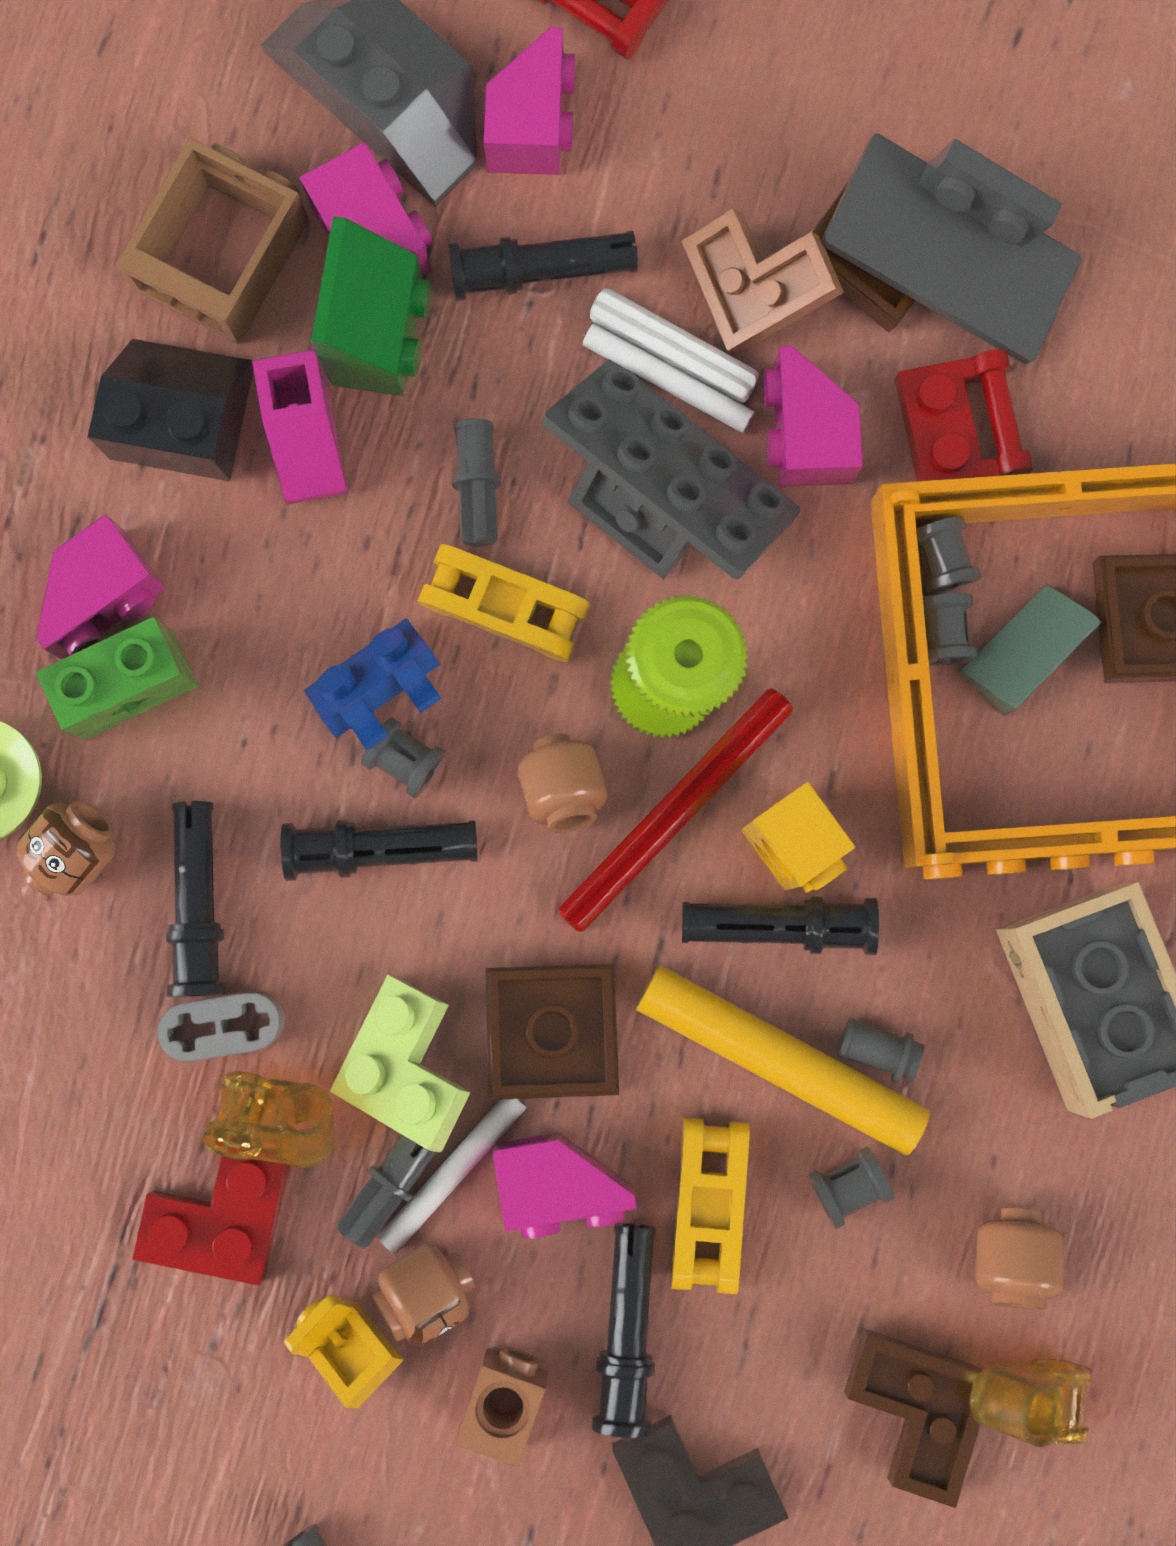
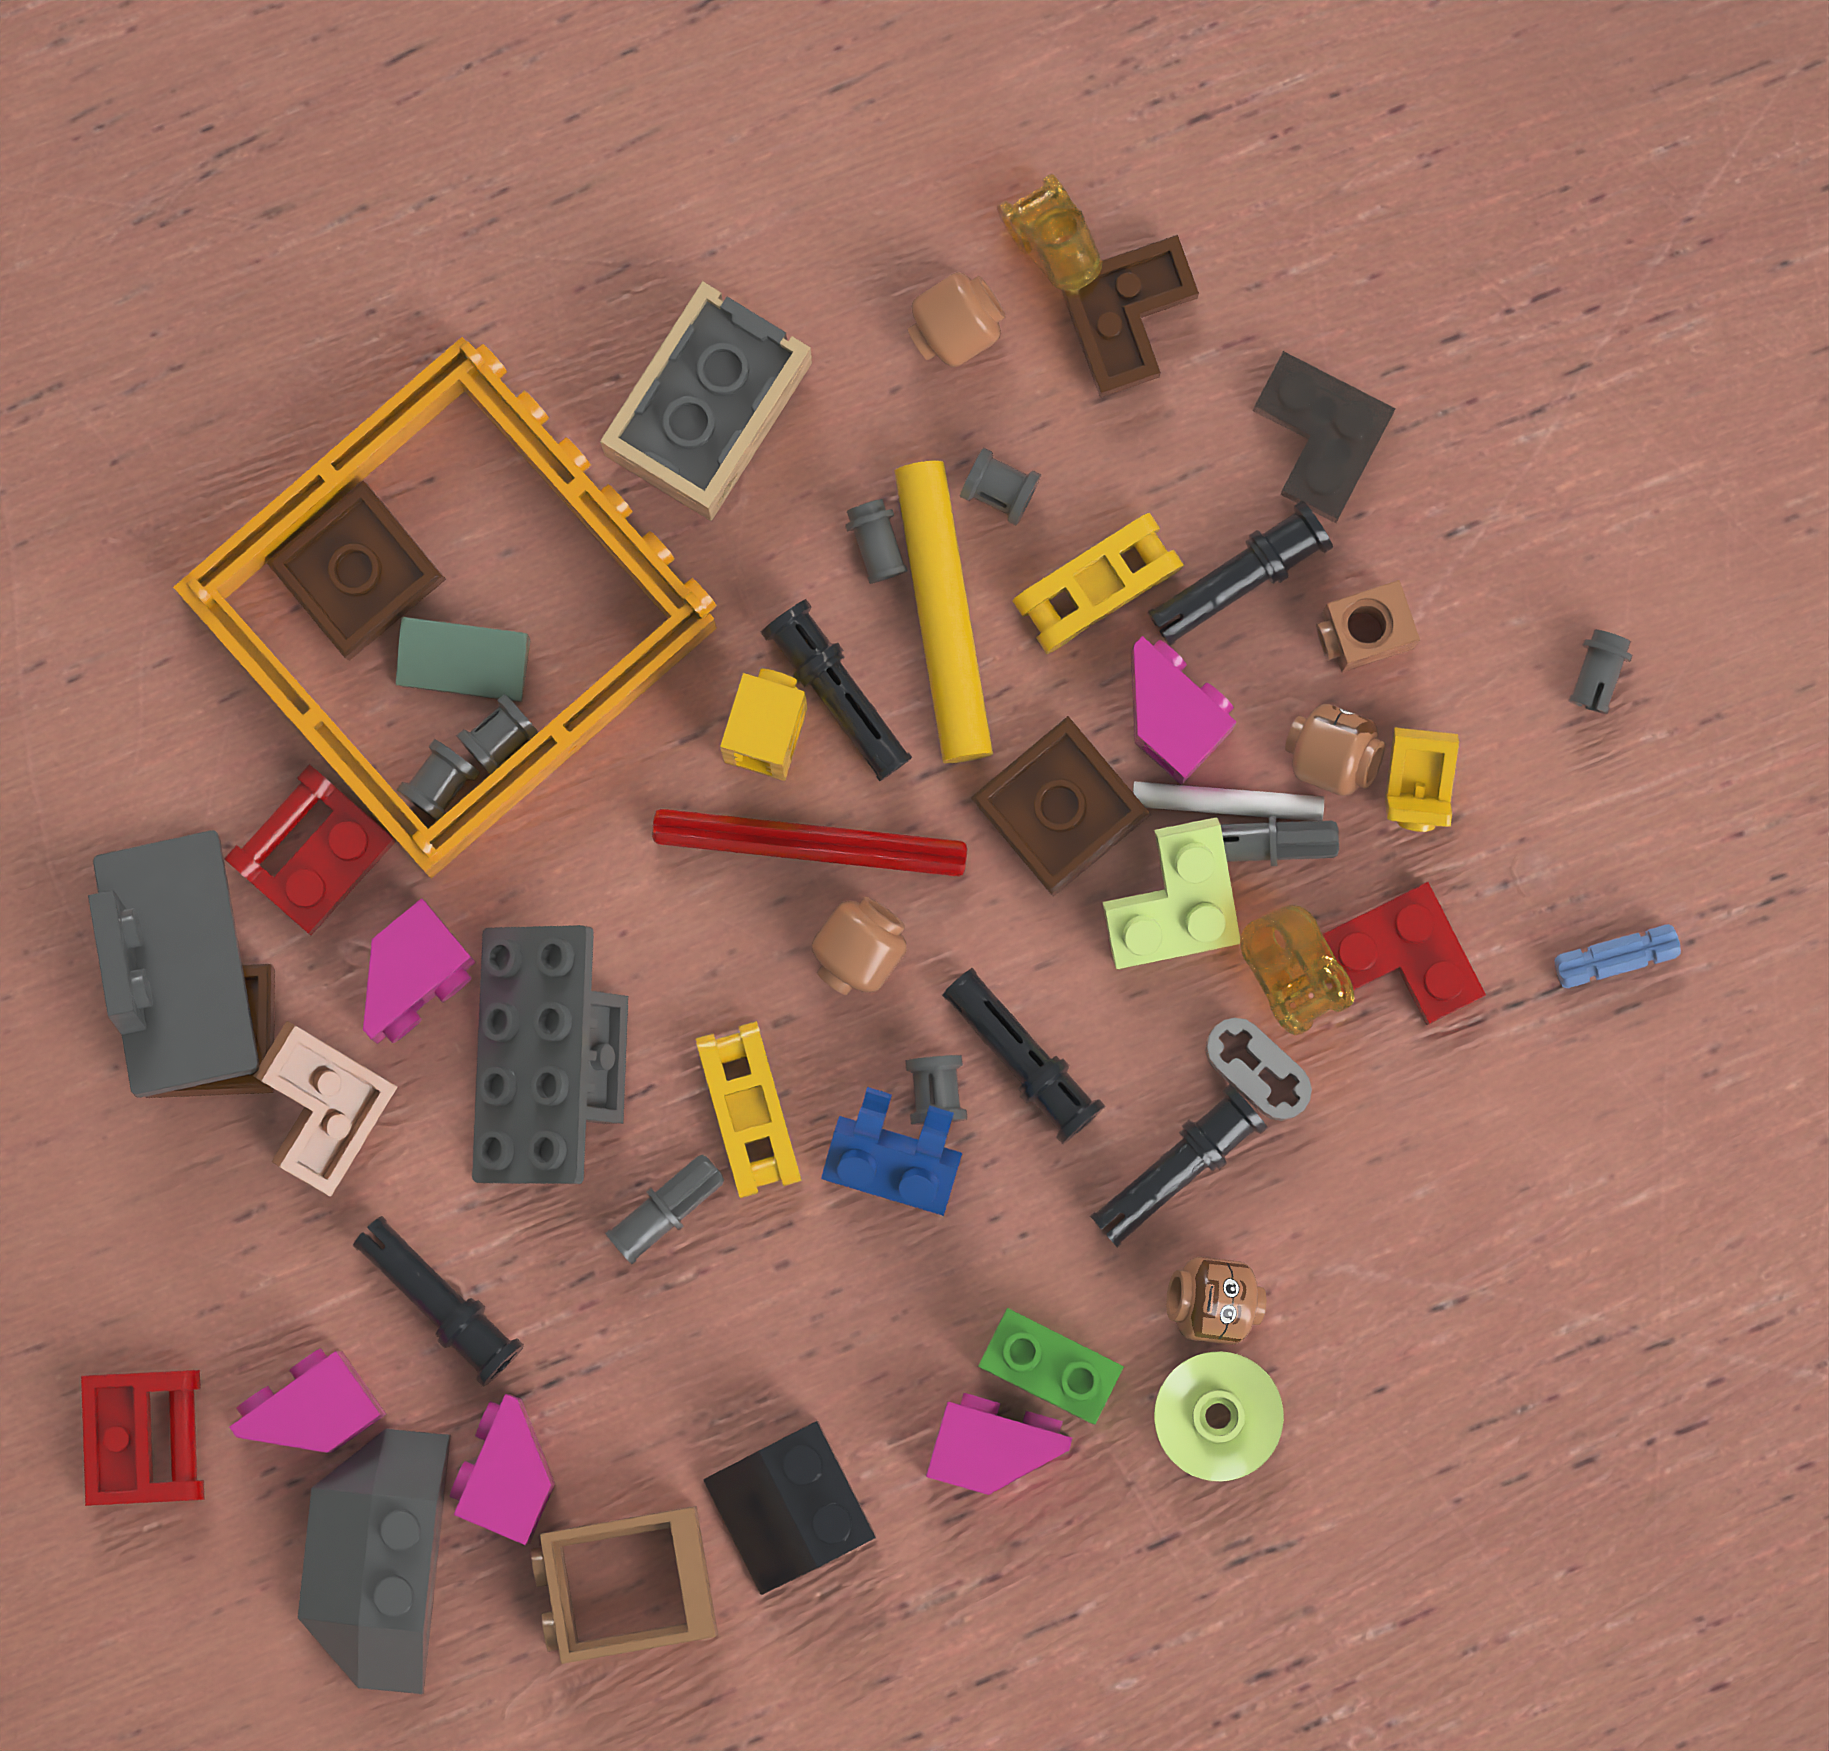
camera: 130 degrees left, 0 degrees up
(79, 1395) = (1617, 956): none -> medium blue axle
(300, 426) = (733, 1379): dark pink slope -> none
(369, 311) = (593, 1396): green slope -> none
(668, 378) = (454, 1120): white piece -> none
(673, 345) = (424, 1136): white axle -> none
(678, 666) = (709, 912): lime hose -> none

